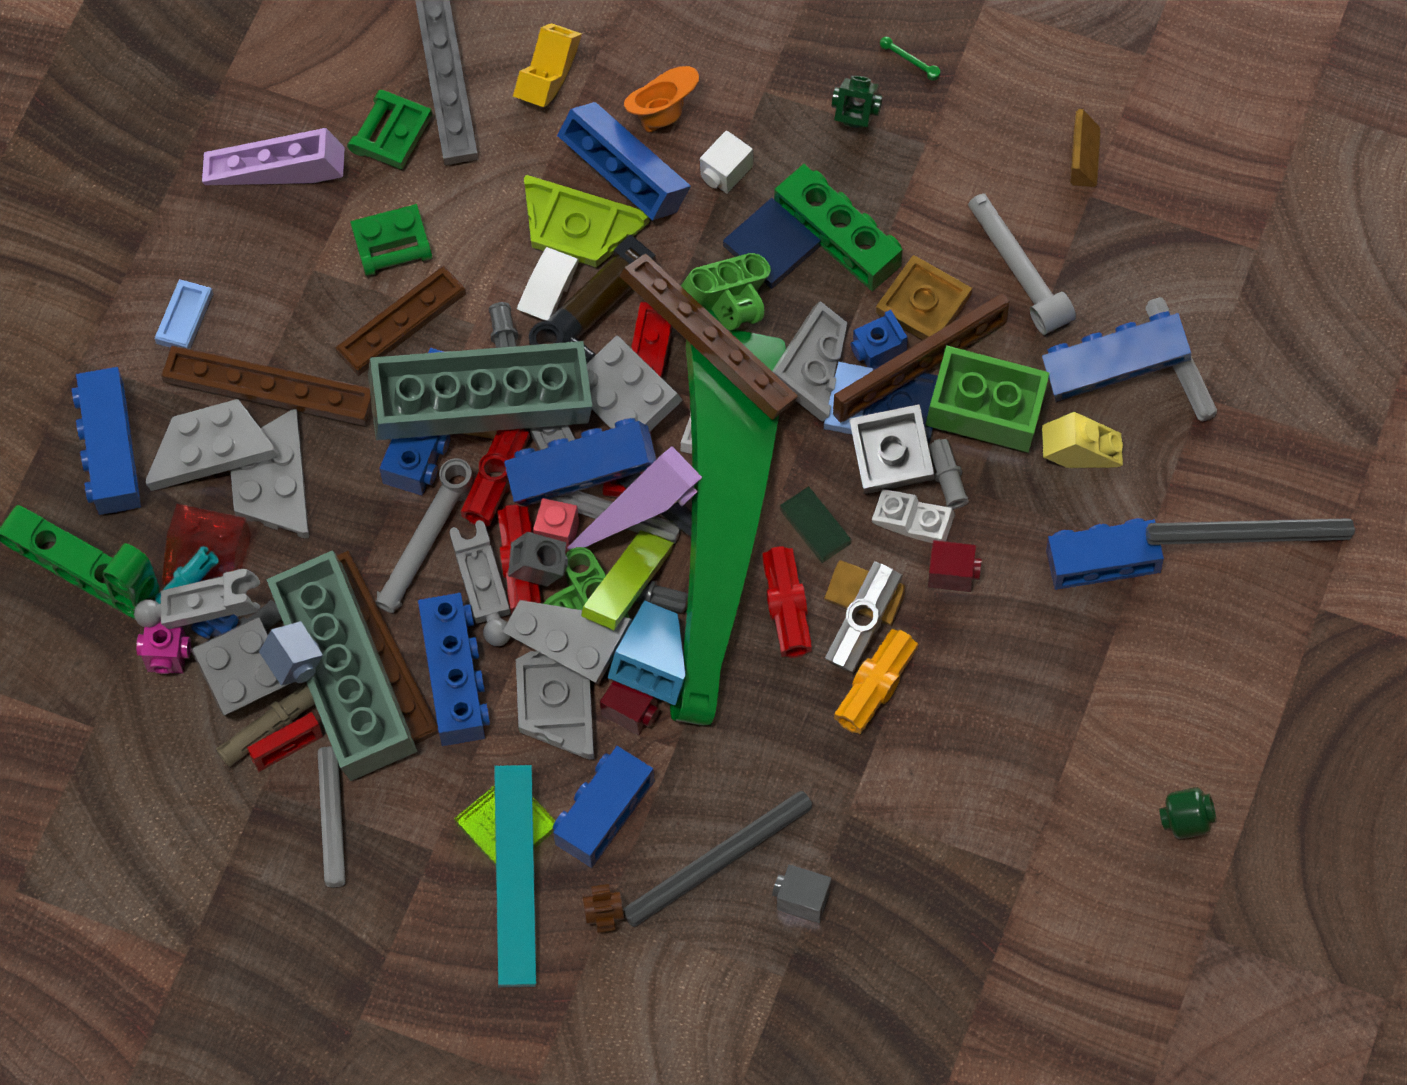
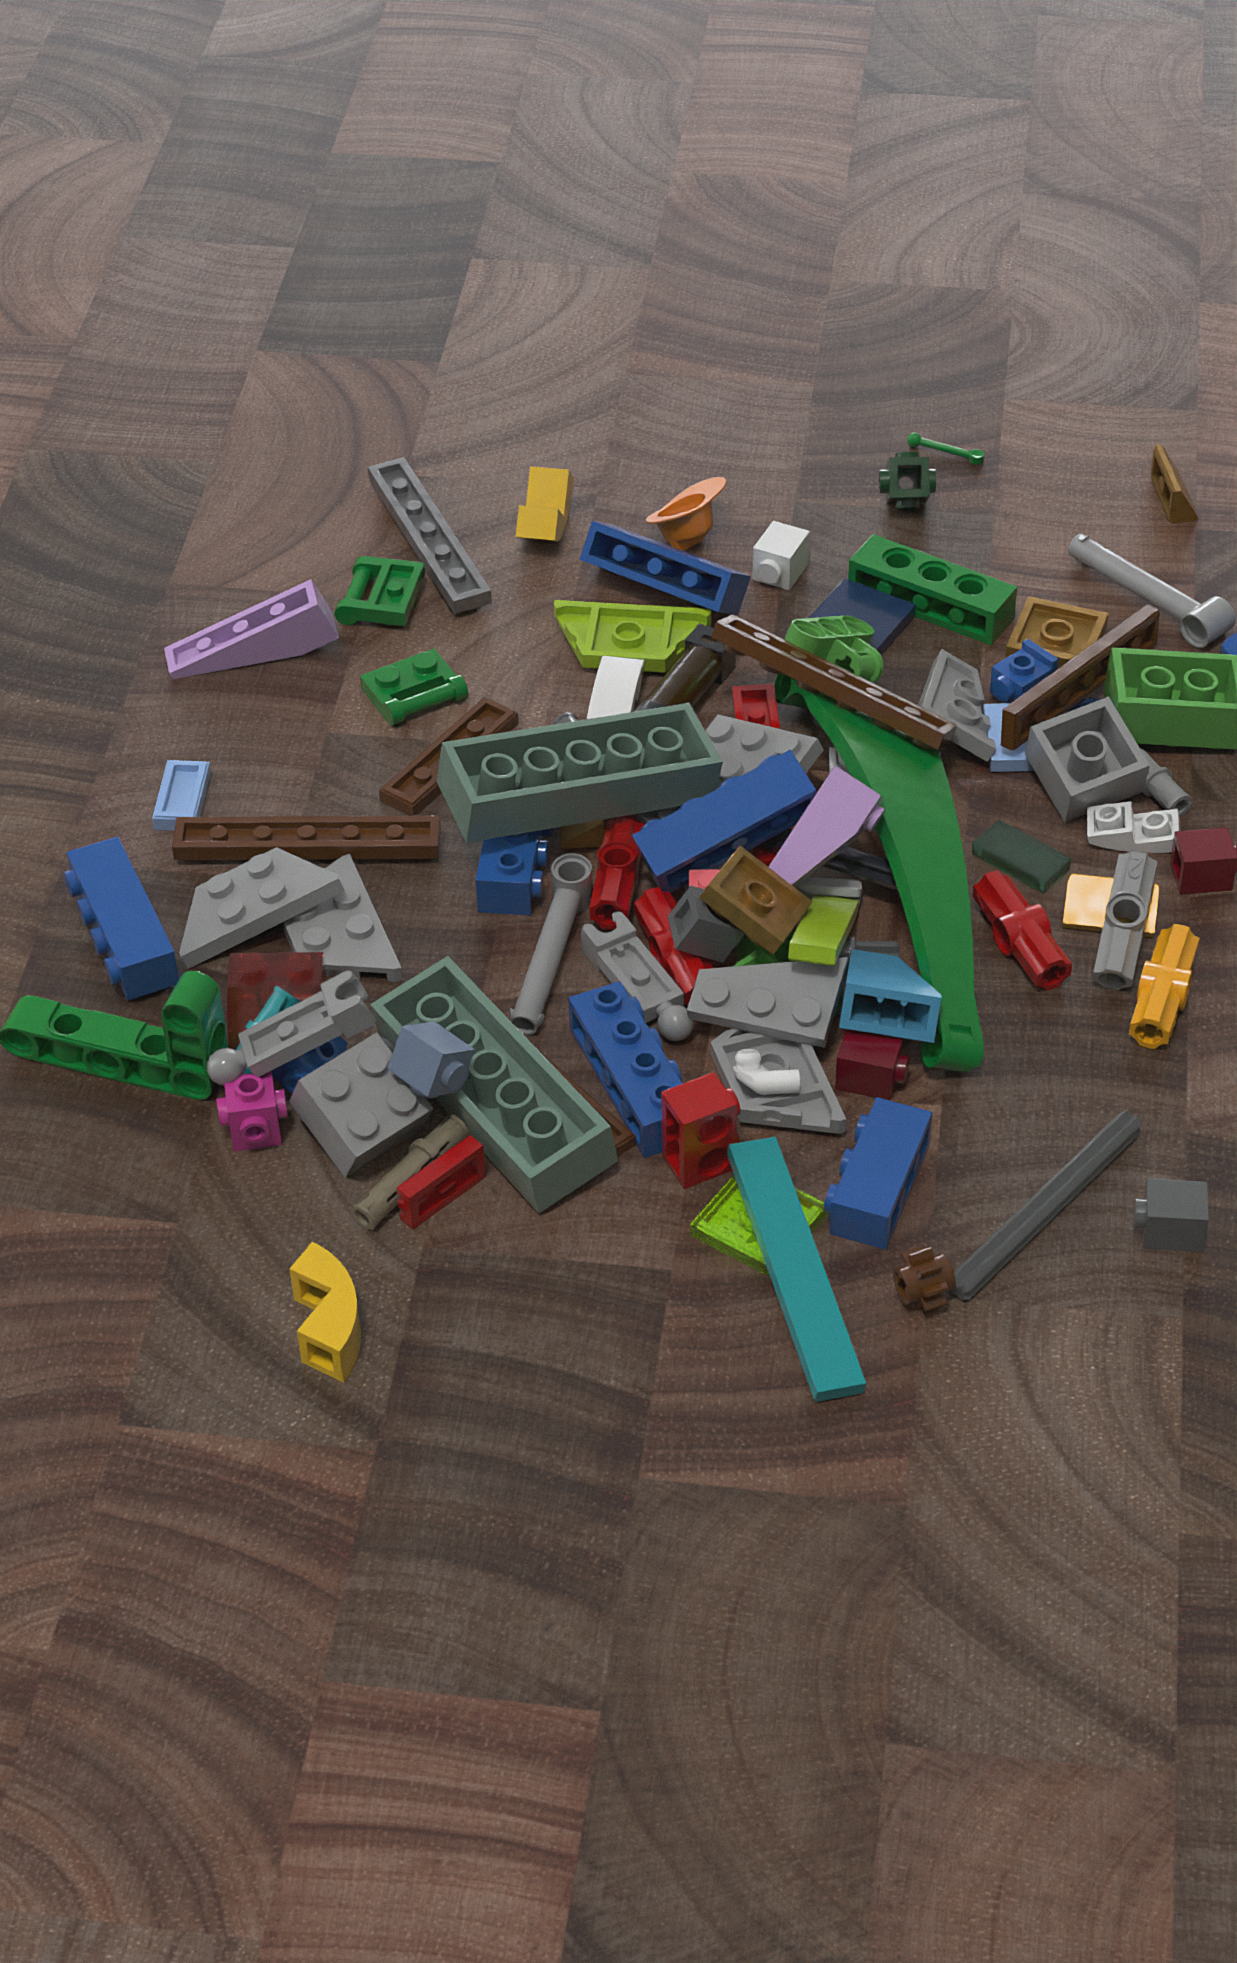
camera: 15 degrees left, 20 degrees down
(178, 853) = (332, 1332): none -> yellow brick
(331, 818) = (527, 1256): light grey axle -> none
(479, 745) = (698, 1128): none -> red brick
(538, 705) = (760, 1078): none -> white arm
(576, 550) = (755, 900): none -> pearl gold plate

